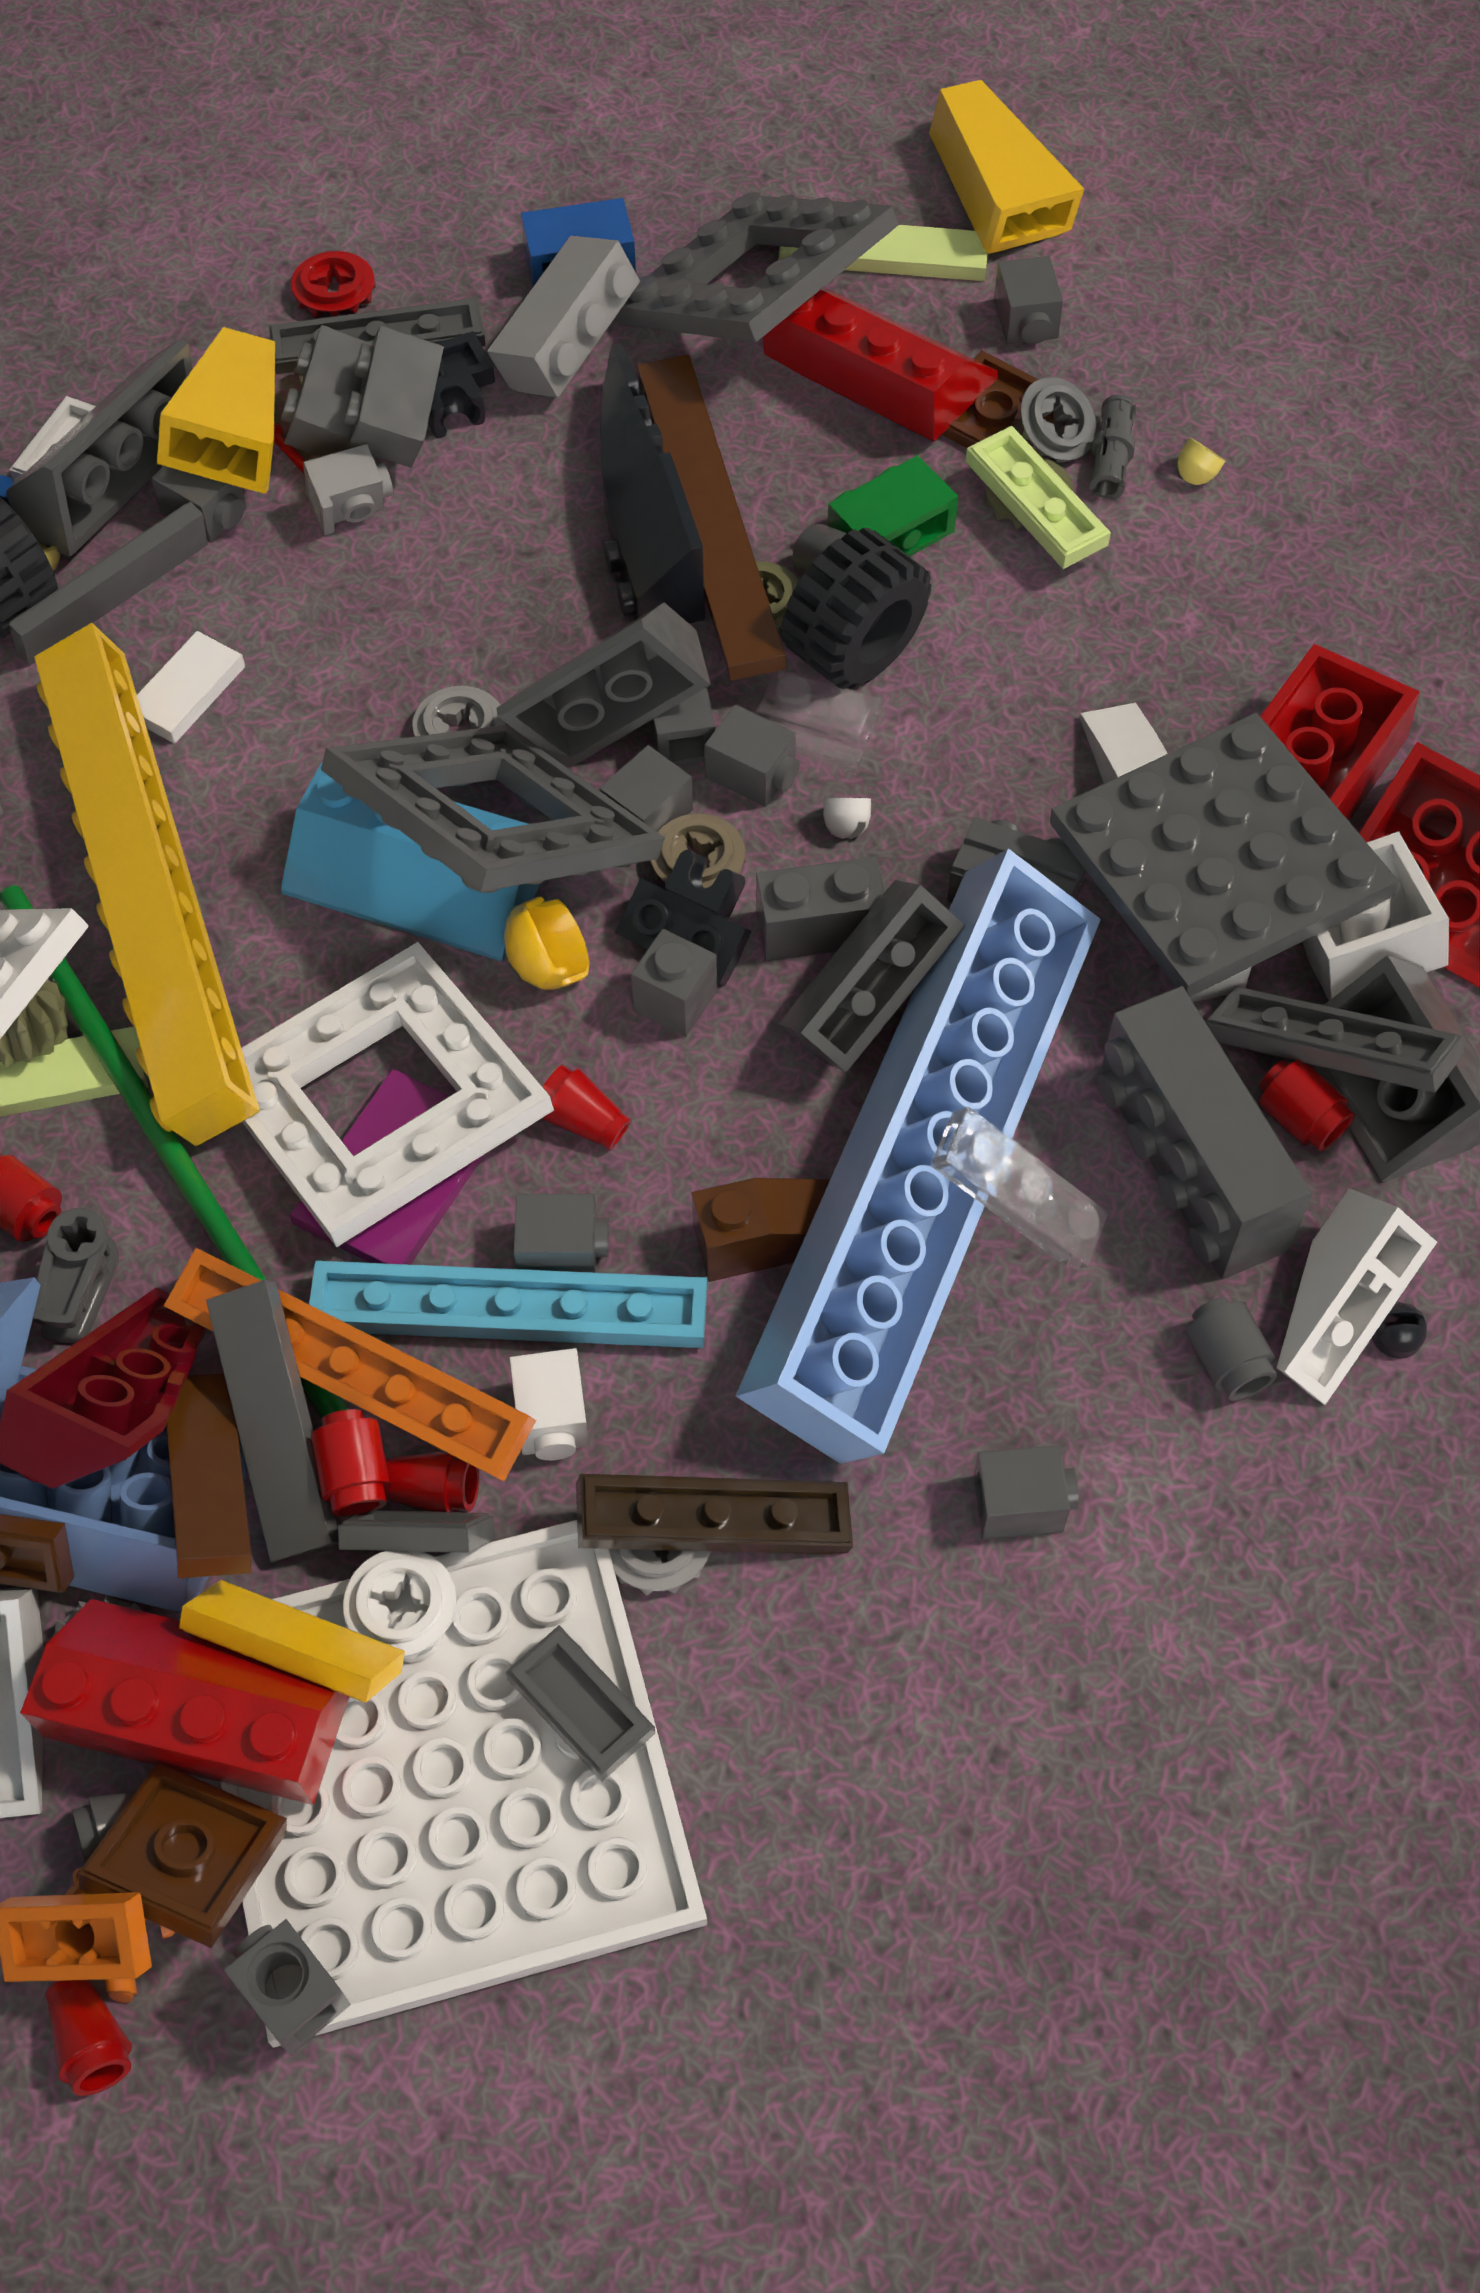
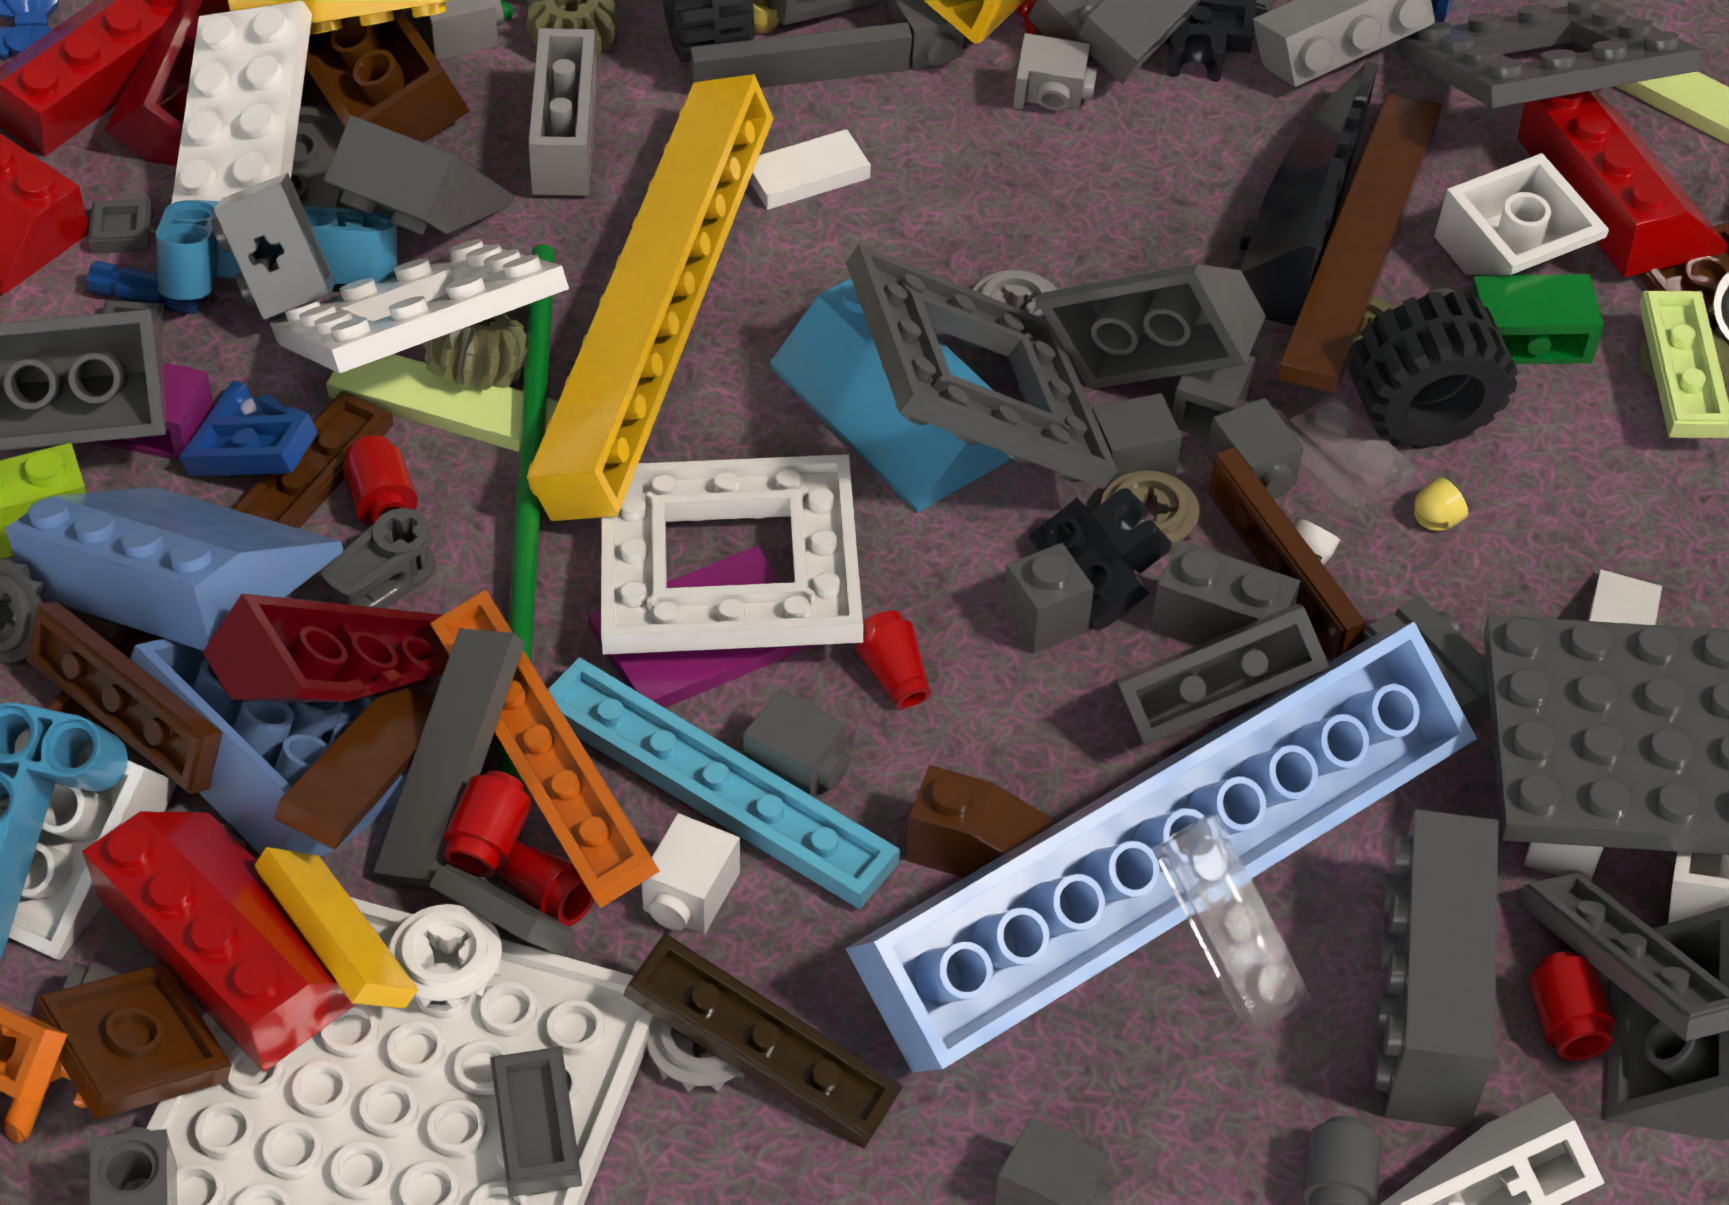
camera: 30 degrees right, 10 degrees down
(545, 944) = (960, 500): yellow hair -> none
(828, 436) = (1515, 219): none -> white slope
(829, 831) = (1283, 550): none -> reddish brown tile
(925, 724) = (1440, 506): none -> light yellow hinge

